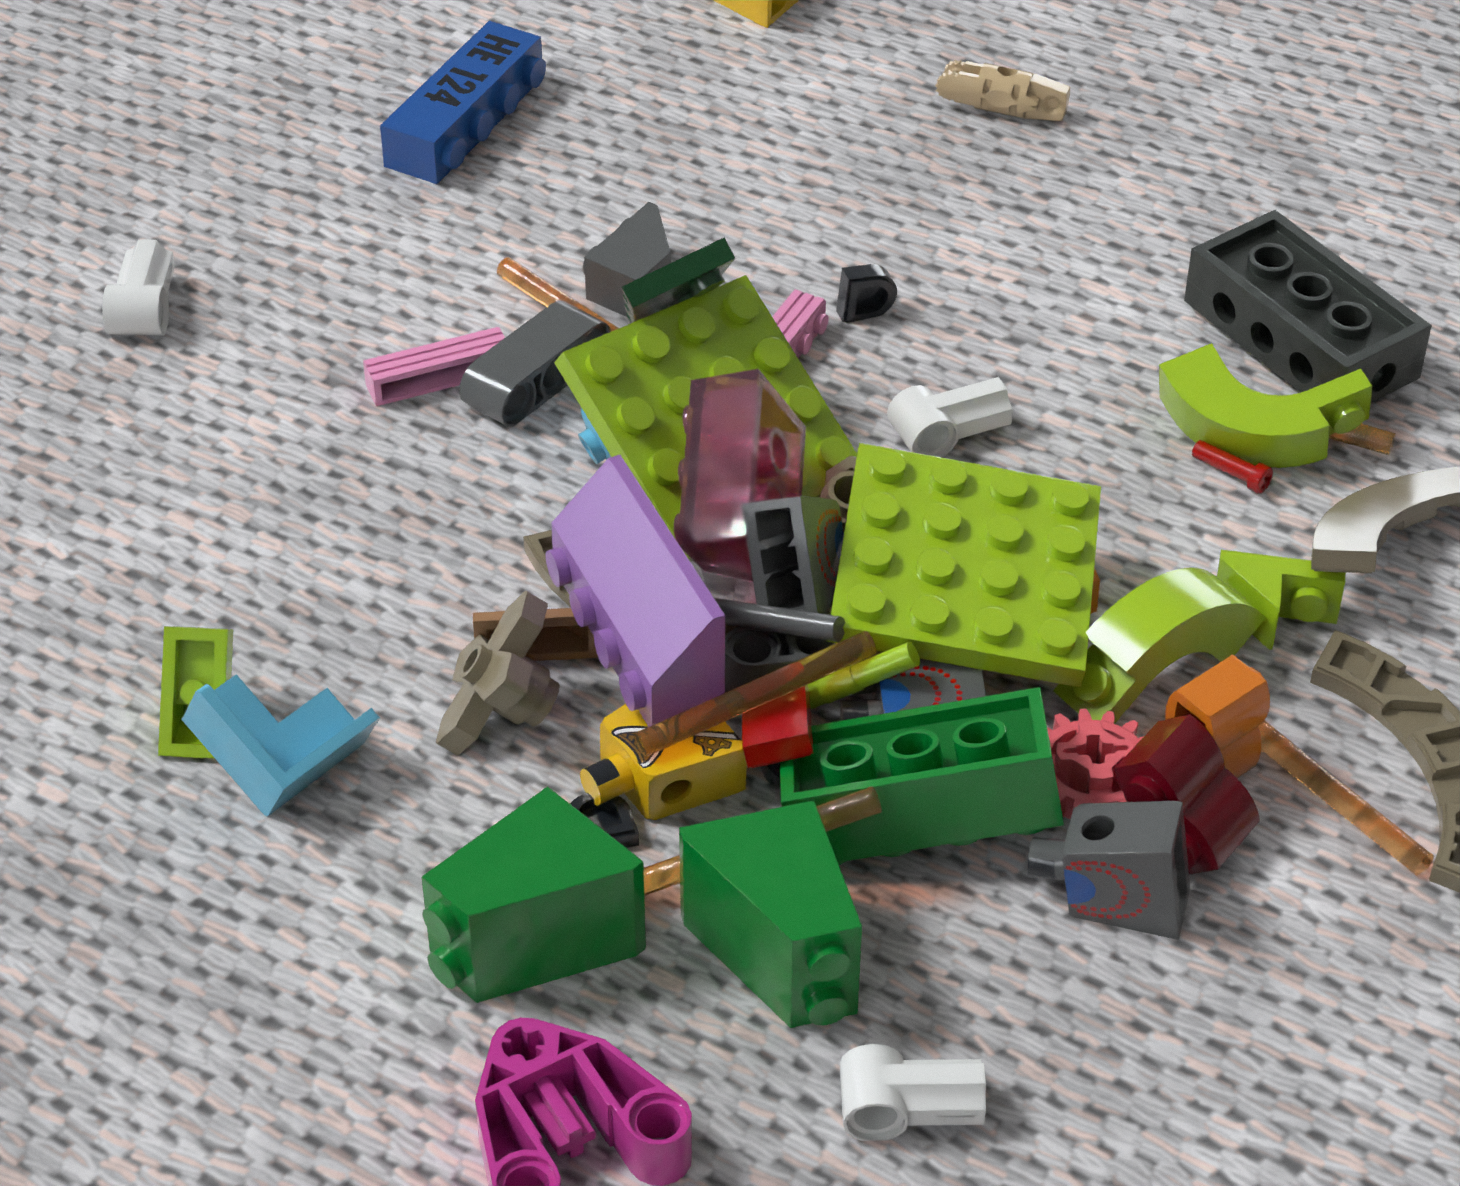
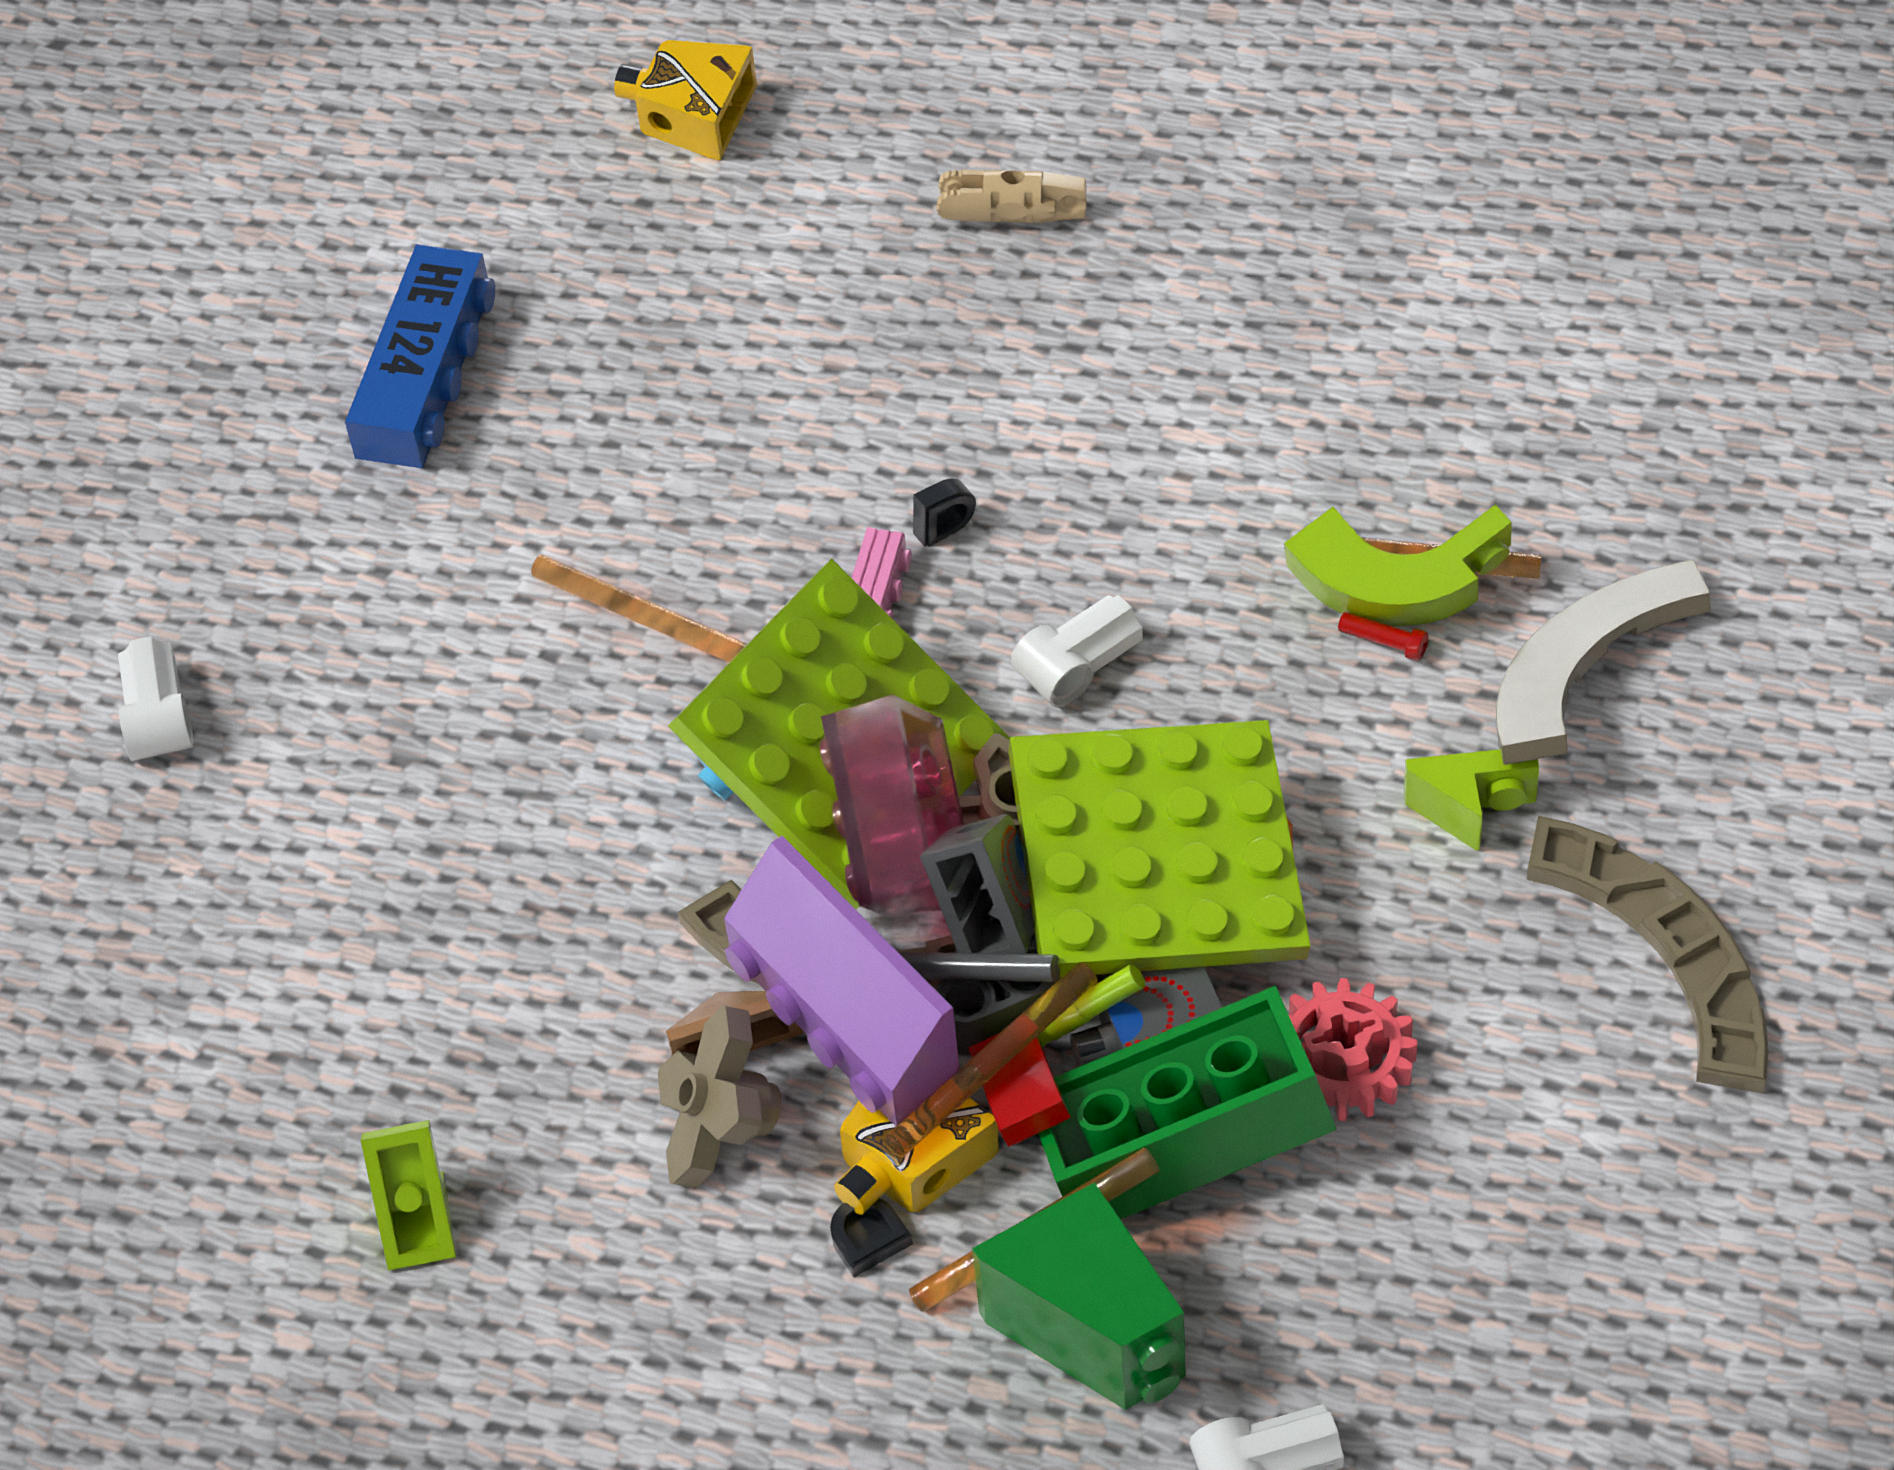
camera: 10 degrees left, 10 degrees up
(271, 757) = (516, 1247): medium azure panel -> none
(426, 367) = (511, 717): bright pink piece -> none
(521, 369) = (617, 689): dark grey beam -> none
(533, 902) = (842, 1353): green slope -> none
(624, 256) = (682, 537): dark grey slope -> none
(678, 281) = (762, 590): dark green wing -> none
(1121, 865) = (1400, 1156): dark grey torso -> none
(1153, 628) = (1365, 873): lime arch -> none
(1185, 765) = (1446, 1061): dark red brick -> none
(1231, 706) = (1454, 977): orange brick -> none
(1304, 308) = (1413, 427): pearl dark grey brick -> none
(1344, 800) = (1574, 1001): clear orange bar -> none

